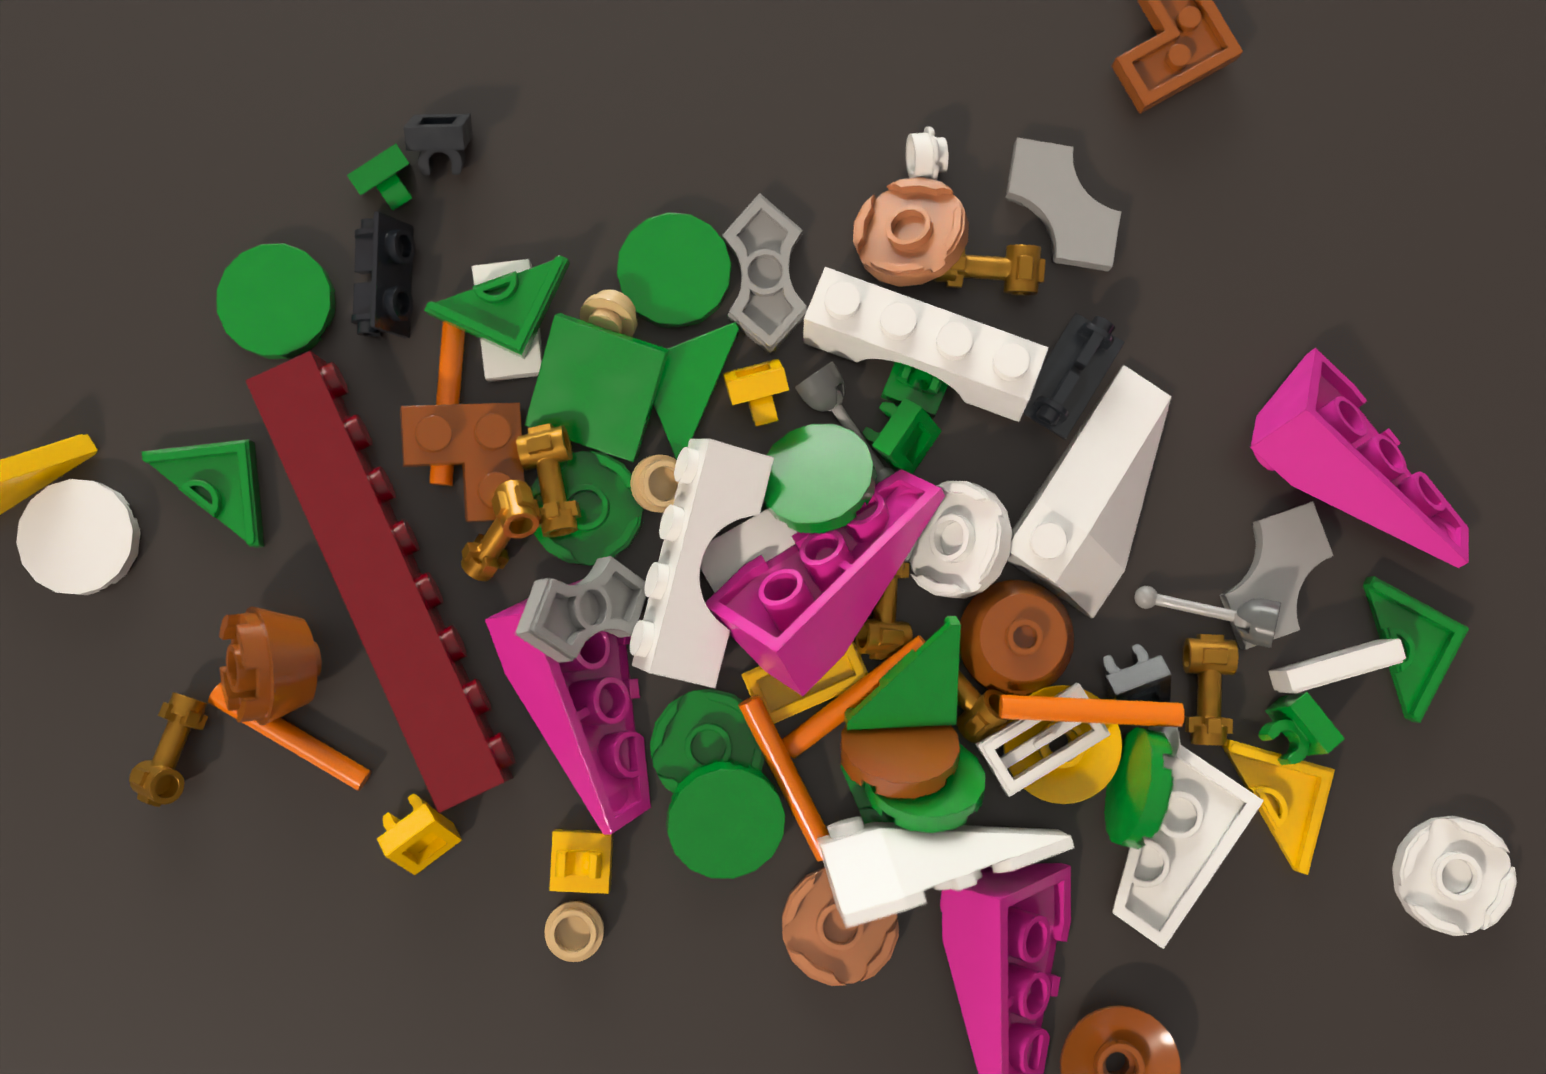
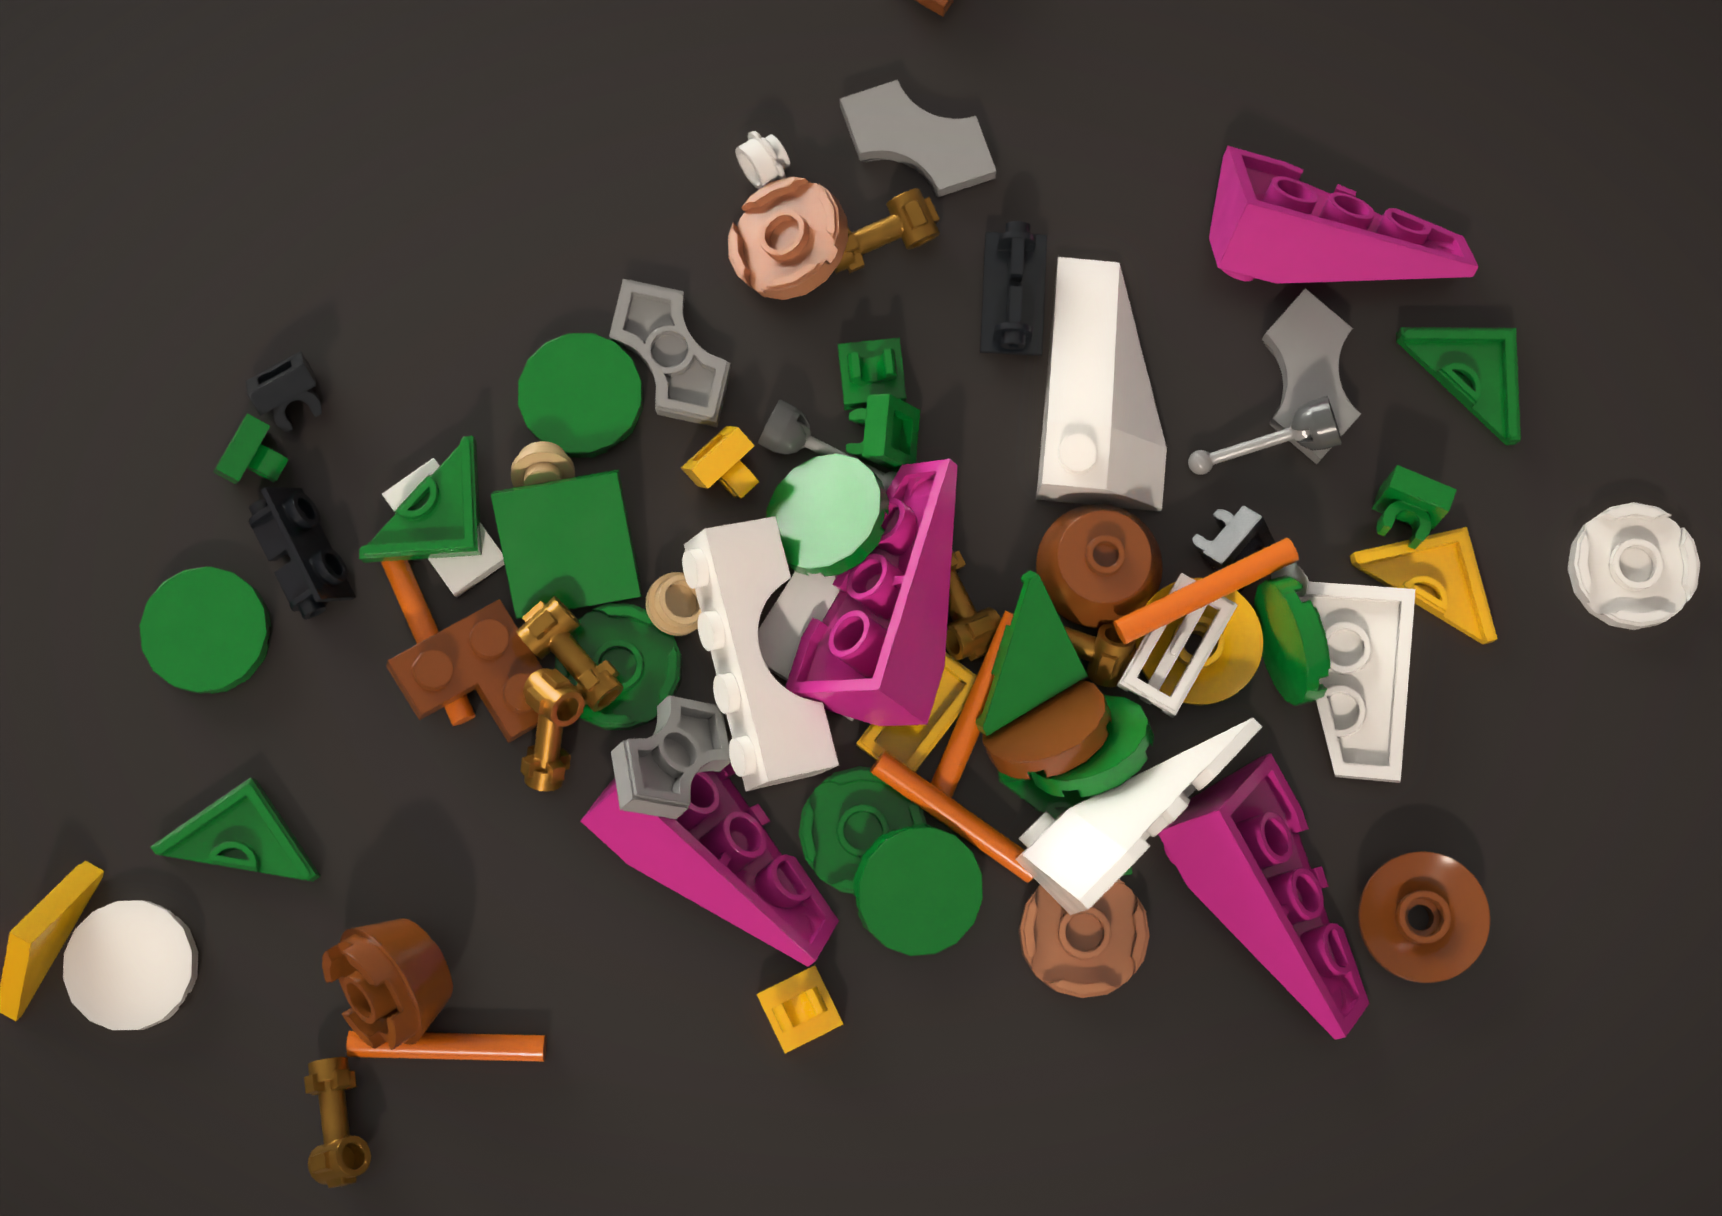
camera: 25 degrees left, 5 degrees down
(380, 579) = (456, 842): dark red brick -> none
(417, 837) = (628, 1070): yellow tile -> none
(574, 931) = (830, 1080): tan plate -> none
(690, 381) = (654, 493): green tile -> none
(877, 323) = (919, 323): white arch -> none
(962, 543) = (998, 501): white tile -> none
(1210, 659) = (1292, 486): pearl gold bar -> none
(1337, 665) = (1413, 428): white tile -> none

